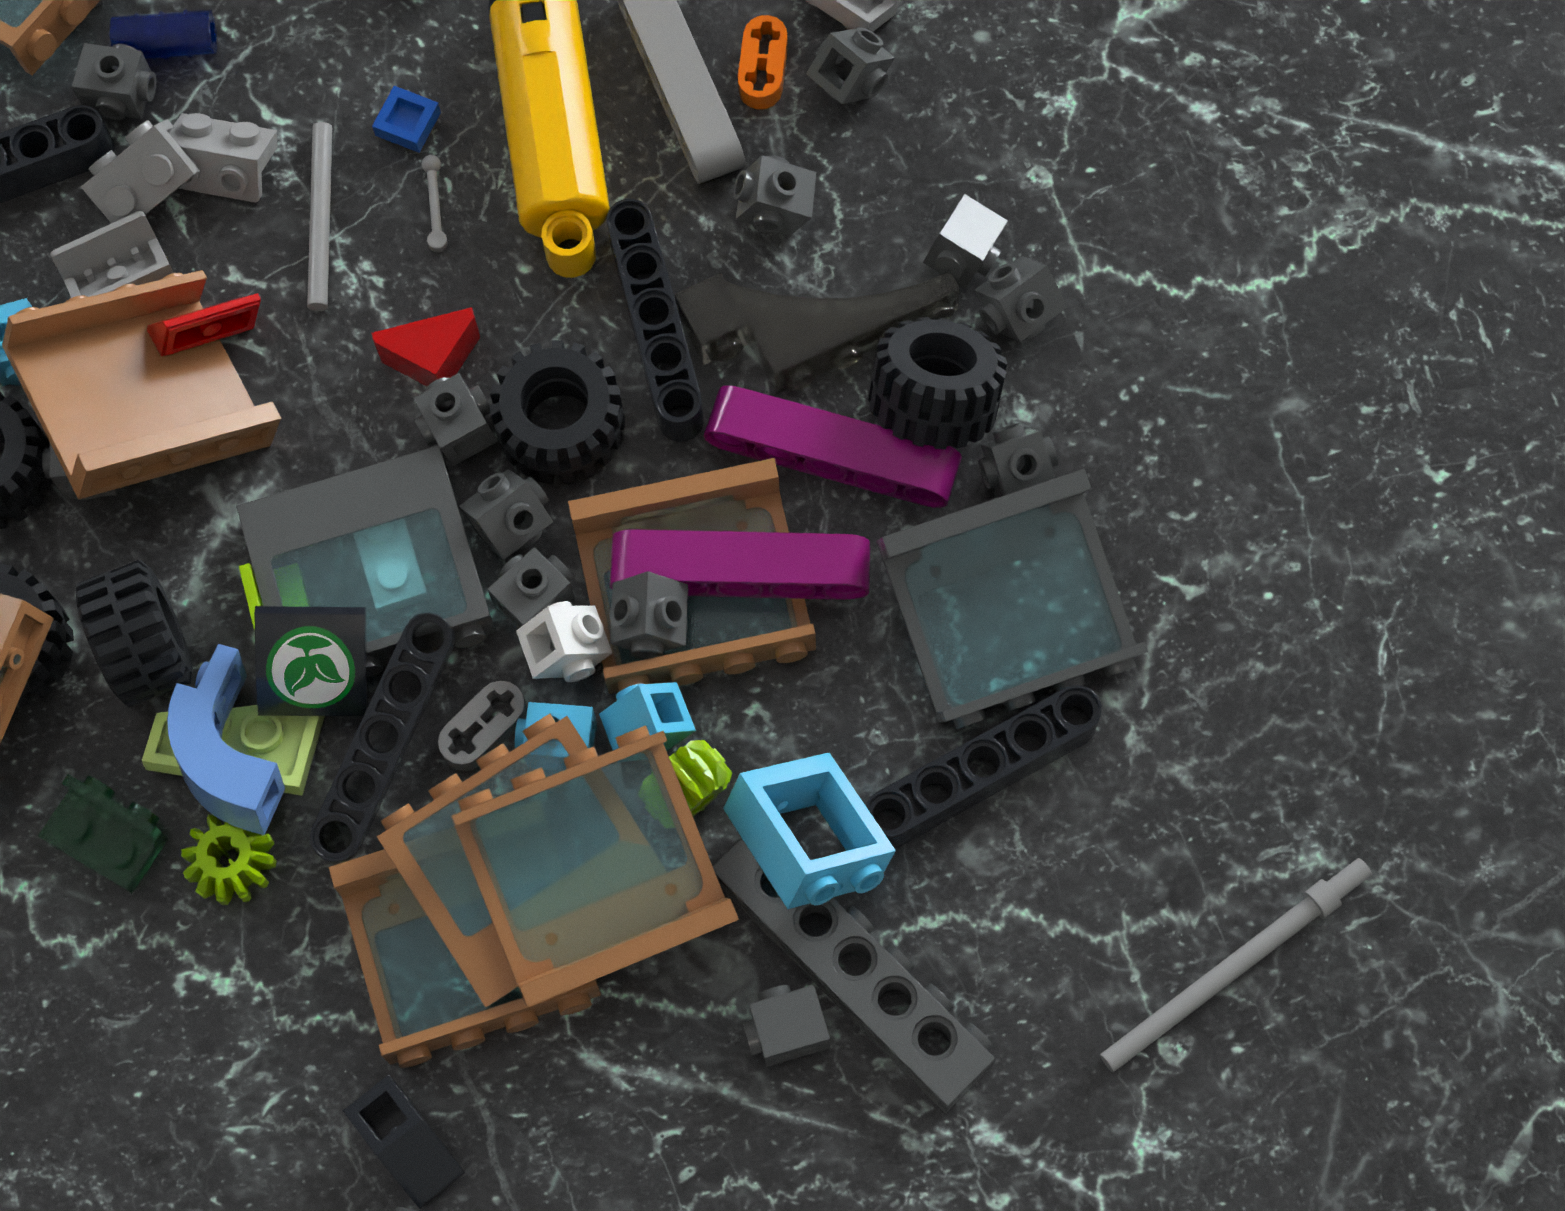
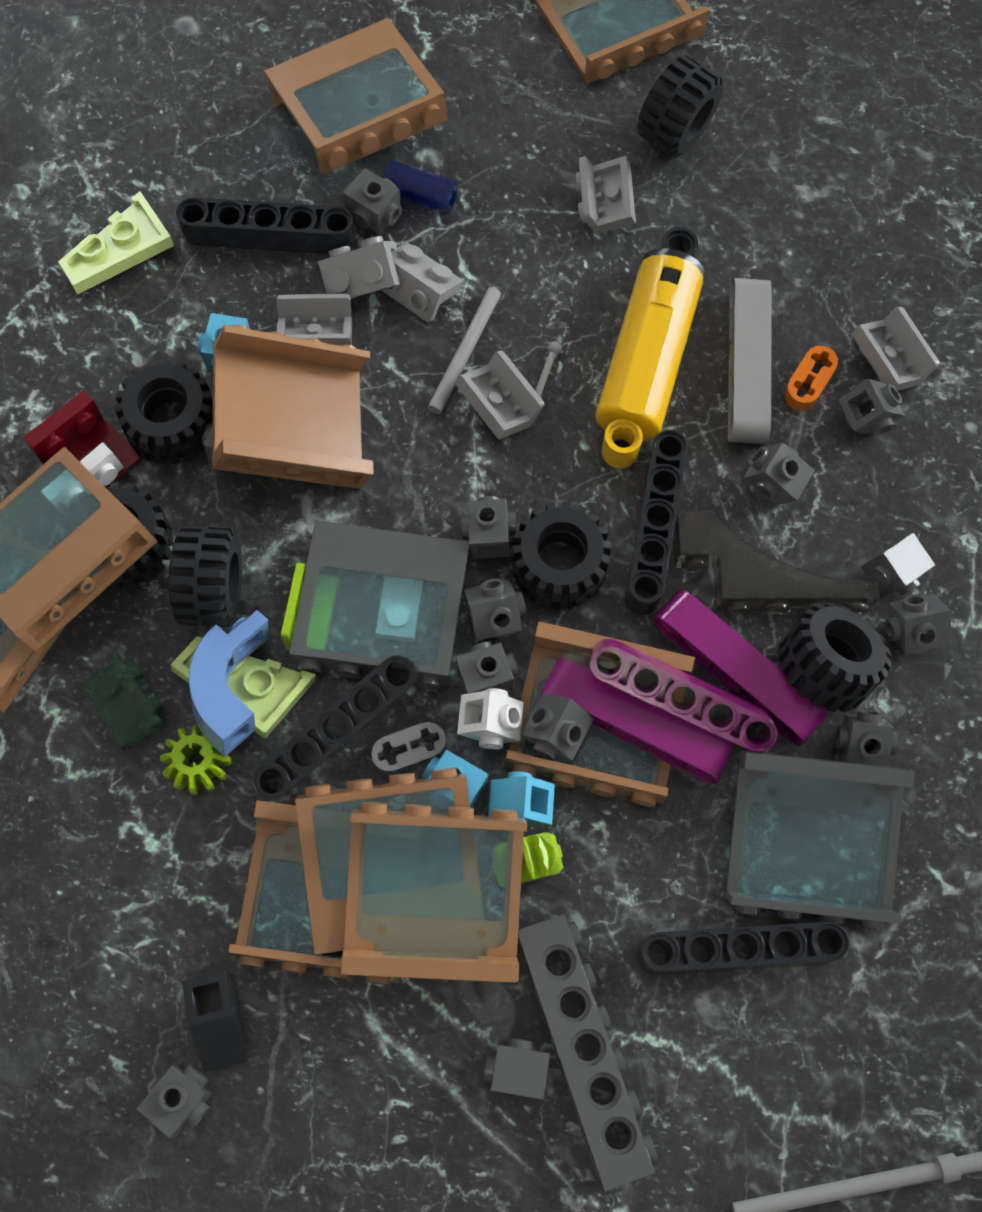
camera: 20 degrees right, 0 degrees up
(205, 325) = (354, 388): red slope -> none
(311, 661) = (312, 651): slope -> none
(393, 252) = (501, 396): none -> light grey bracket
(406, 119) = (552, 310): blue plate -> none
(429, 346) = (495, 471): red slope -> none
(789, 786) = (620, 901): medium azure window -> none
(802, 520) = (694, 711): none -> magenta beam

